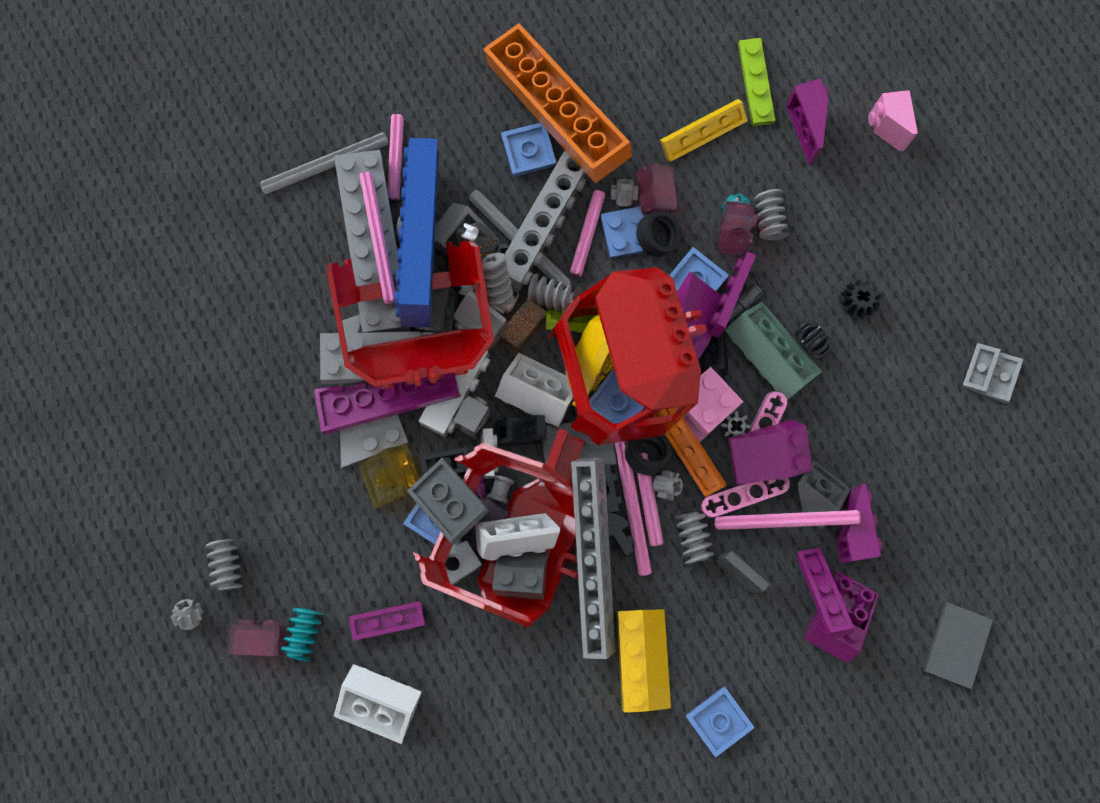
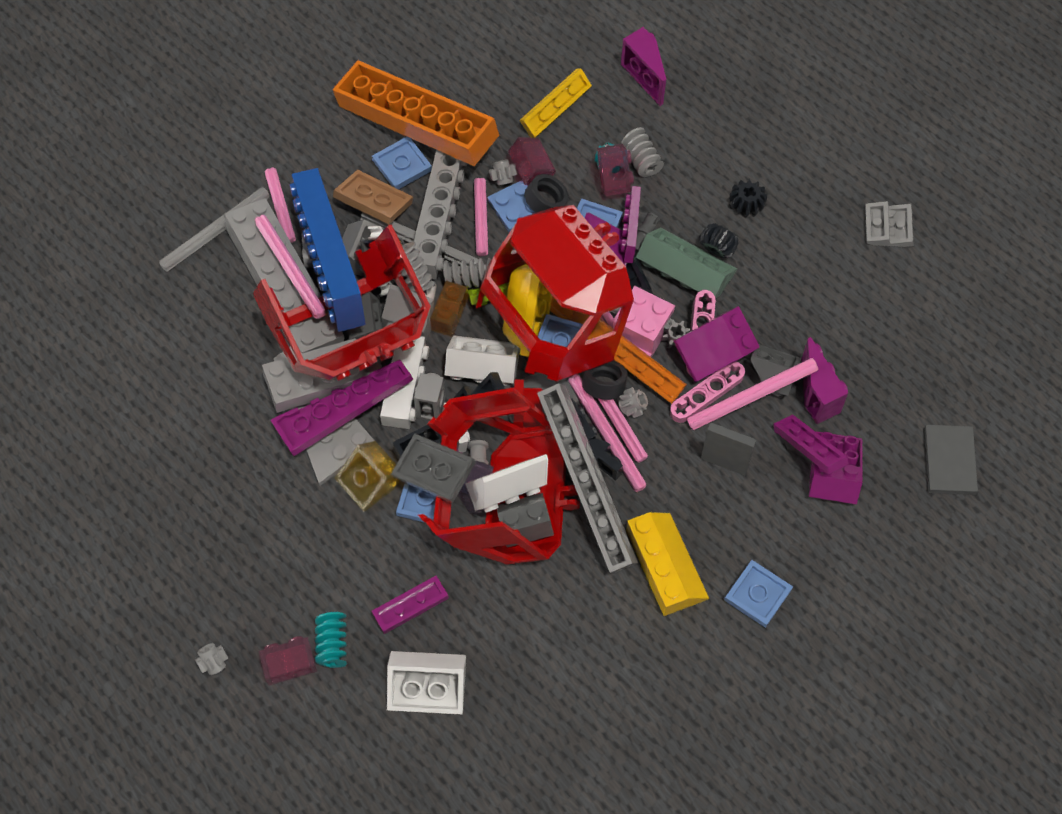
camera: 15 degrees left, 15 degrees down
(223, 564) = (232, 603): light grey piece -> none
(468, 561) = (458, 518): light grey brick -> none
(487, 179) = (373, 197): none -> medium nougat plate
(694, 536) = (673, 440): light grey piece -> none
(756, 82) = (588, 53): lime plate -> none
(894, 119) = (720, 44): bright pink slope -> none

